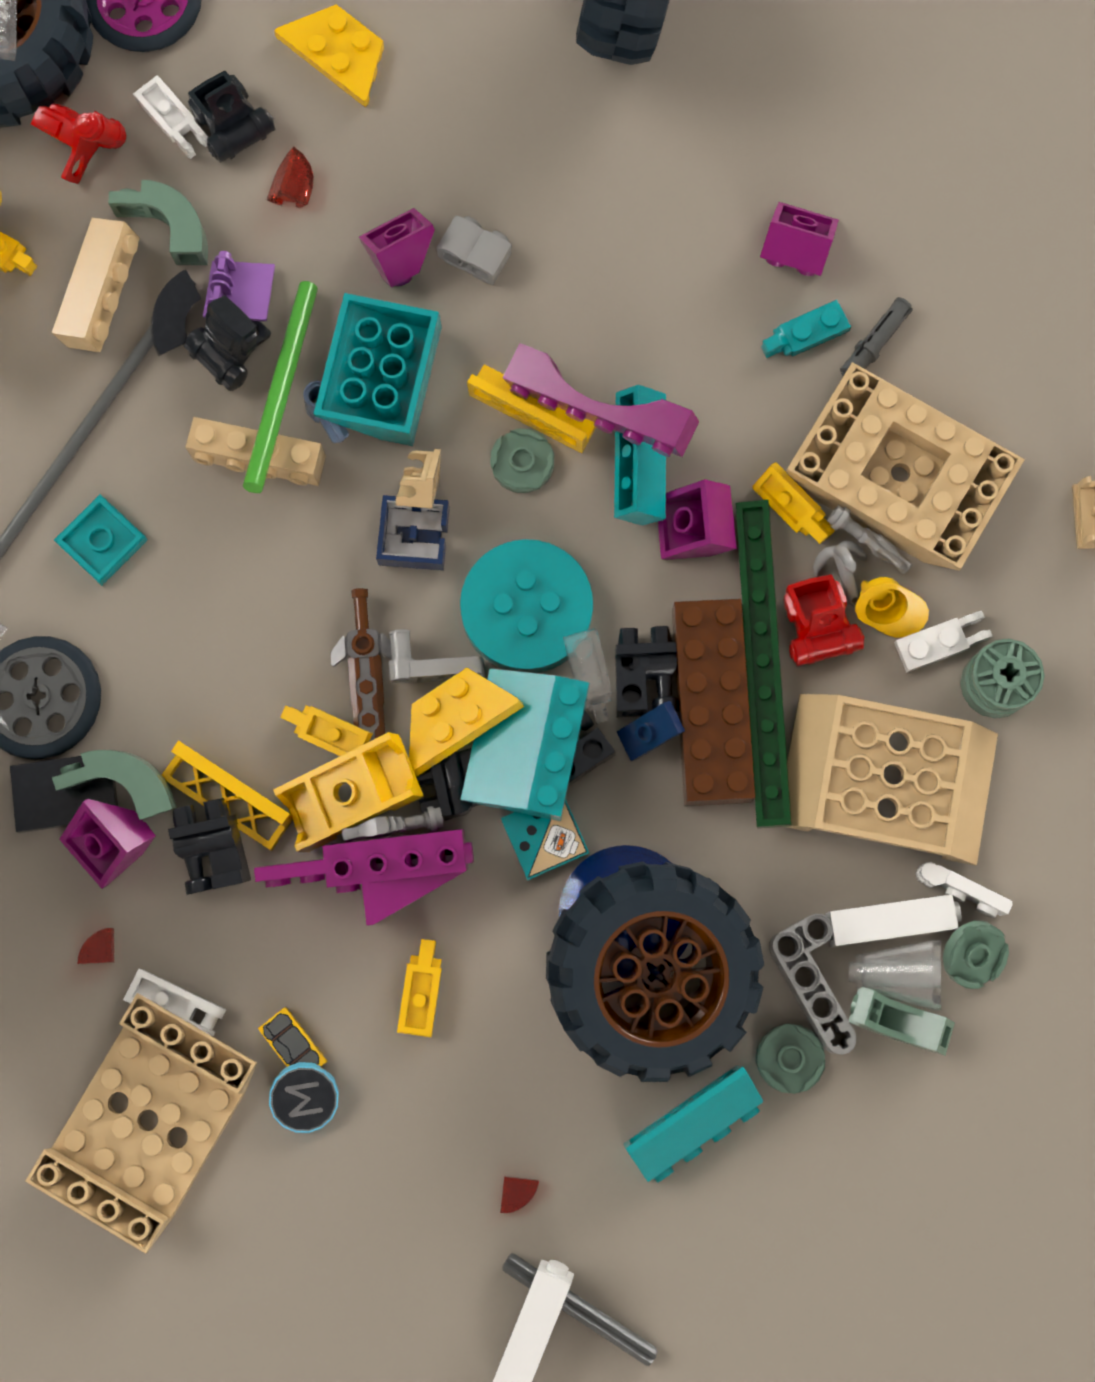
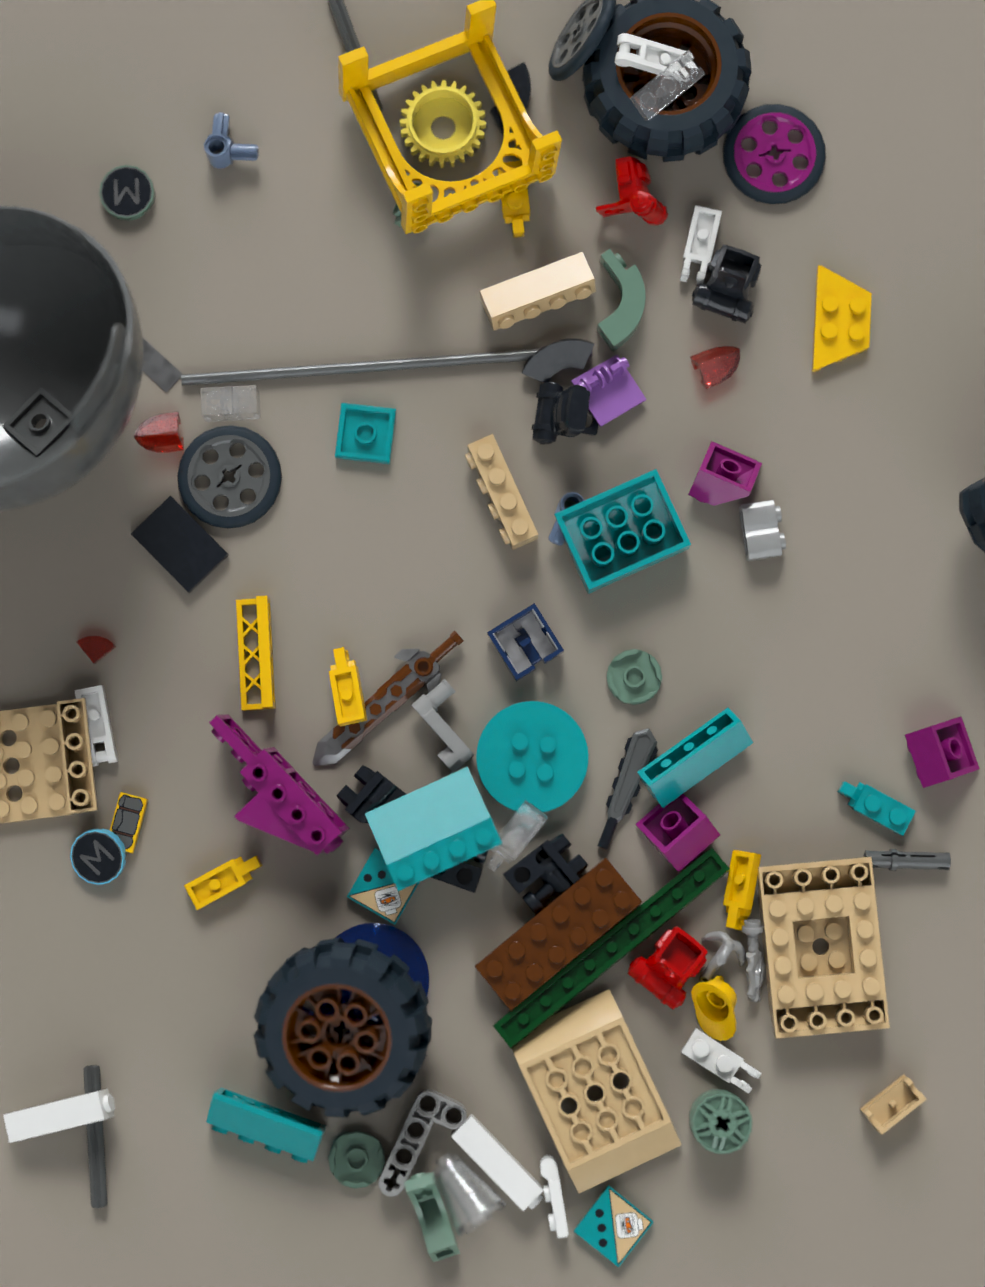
camera: 55 degrees right, 5 degrees up
(106, 839) = (168, 597): magenta slope -> none
(140, 778) = (223, 577): sand green arch -> none
(213, 838) = (221, 667): black hips -> none
(280, 388) = (558, 476): bright green piece -> none
(379, 782) = (336, 750): yellow piece -> none
(383, 826) = (307, 776): light grey piece -> none
(420, 484) = (563, 620): tan hinge -> none
(455, 716) = (417, 768): yellow wing -> none
(494, 391) = (676, 656): yellow fence -> none
(517, 1193) = (139, 1041): clear red tile -> none
(596, 505) = (640, 750): none -> dark grey sword
(650, 731) = (506, 906): dark blue plate -> none
(658, 423) = (718, 758): magenta arch -> none
(975, 954) = (515, 1235): sand green tile -> none
(1030, 855) = (613, 1226): none -> tile

